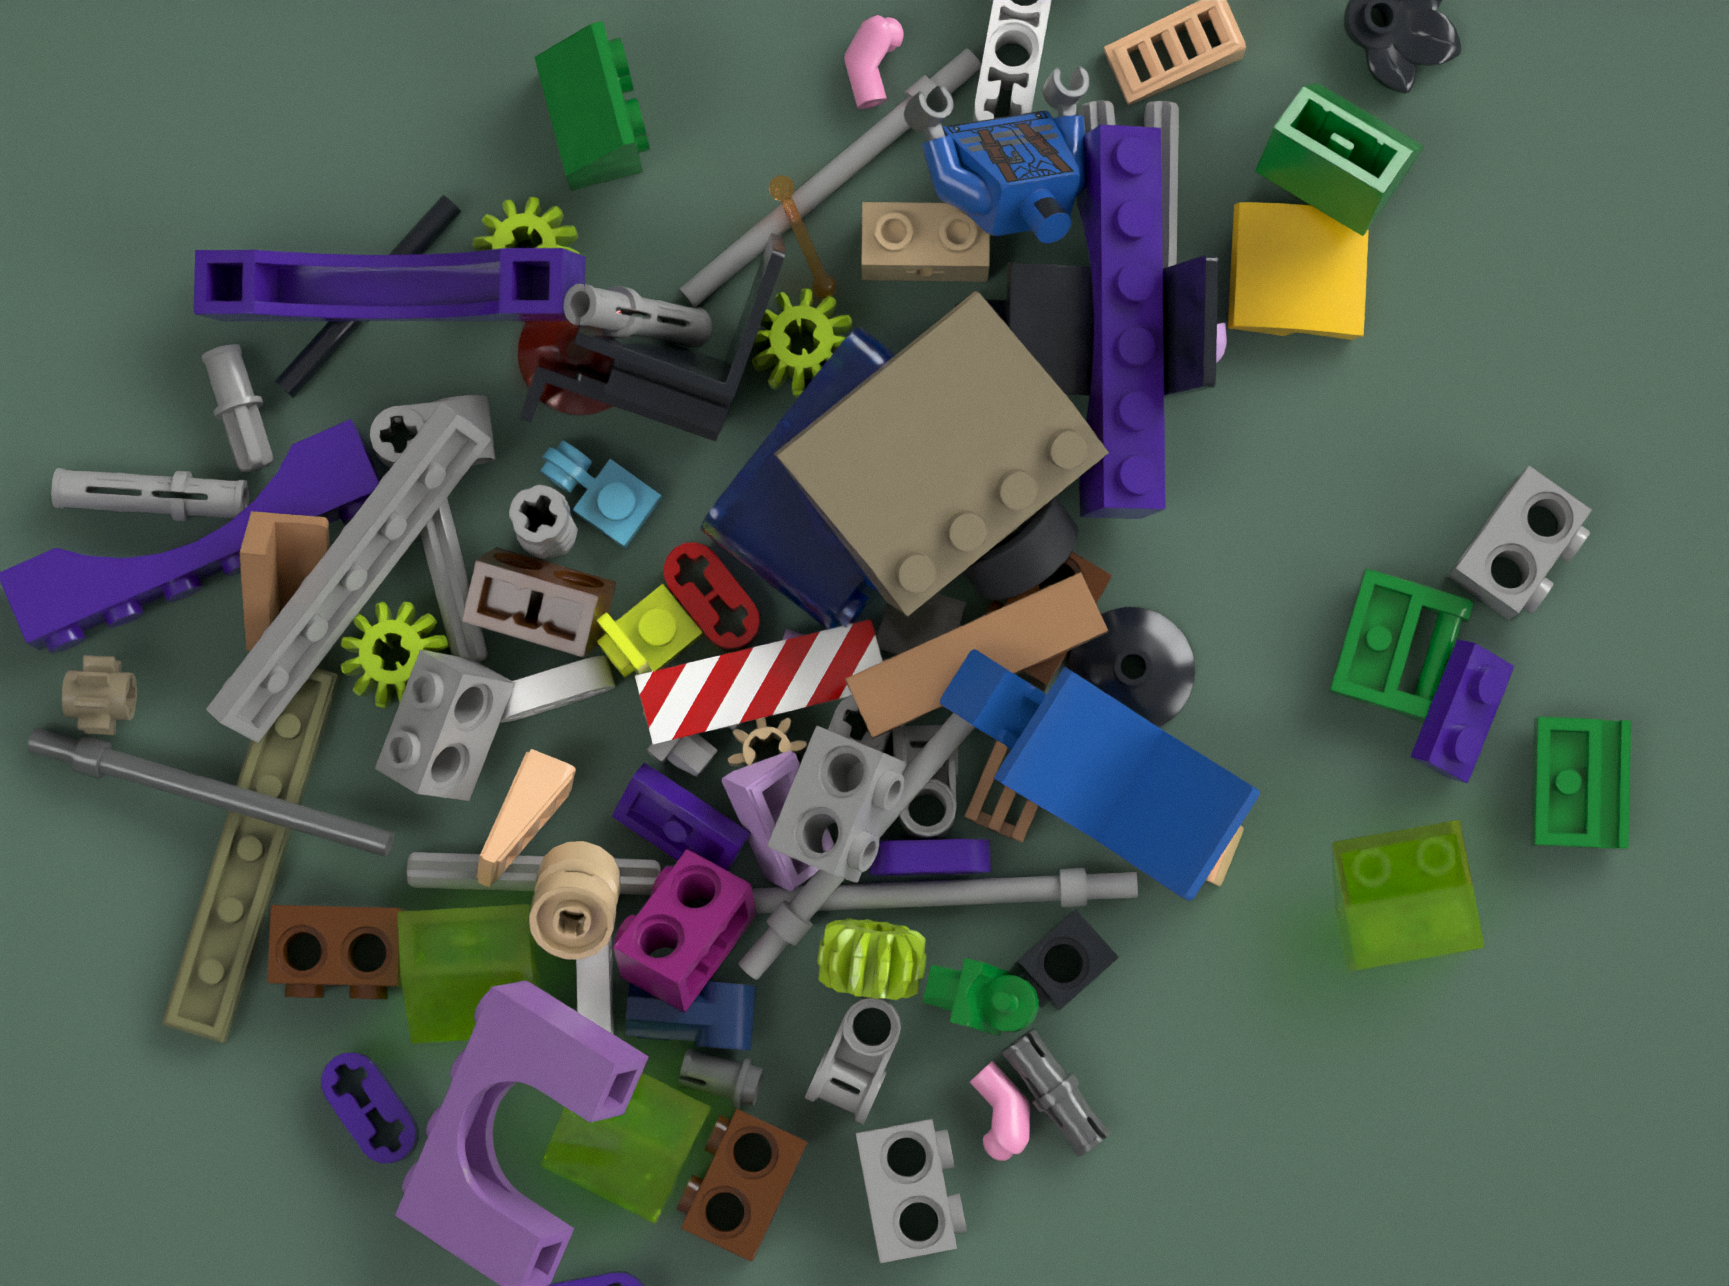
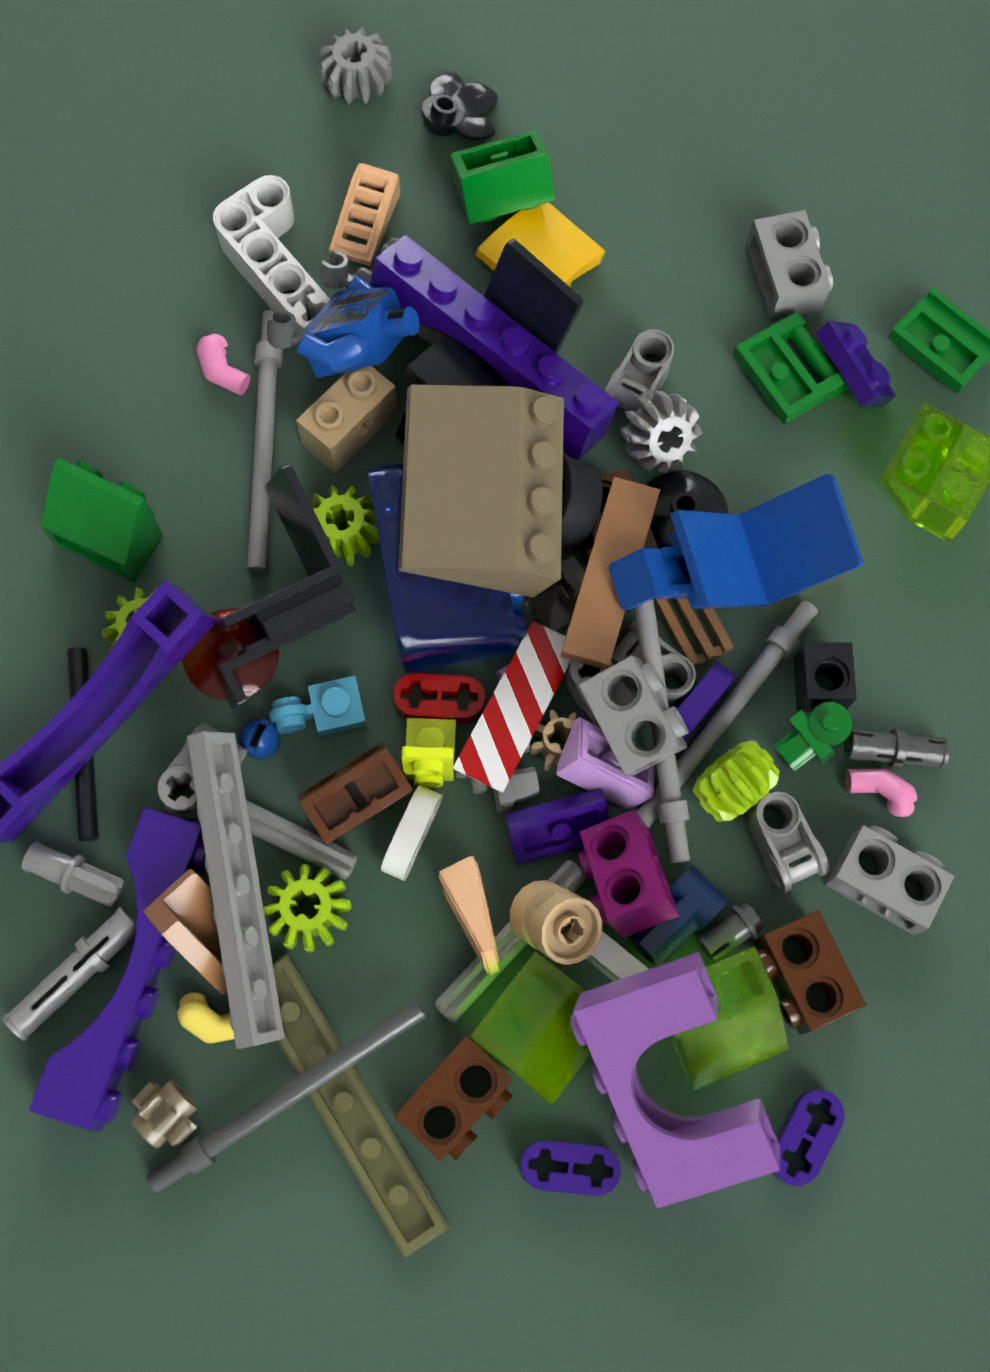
camera: 55 degrees left, 10 degrees down
(210, 650) = (202, 1020): none -> light yellow arm
(444, 725) = (378, 911): light grey brick -> none
(523, 472) = (268, 743): none -> blue hinge
(539, 504) = (307, 732): light grey axle -> none
(598, 309) = (237, 589): light grey pin -> none
(782, 189) = (246, 463): clear orange hinge -> none
(1188, 574) = (661, 431): none -> light grey gear
(1236, 500) = (638, 376): none -> light grey piece

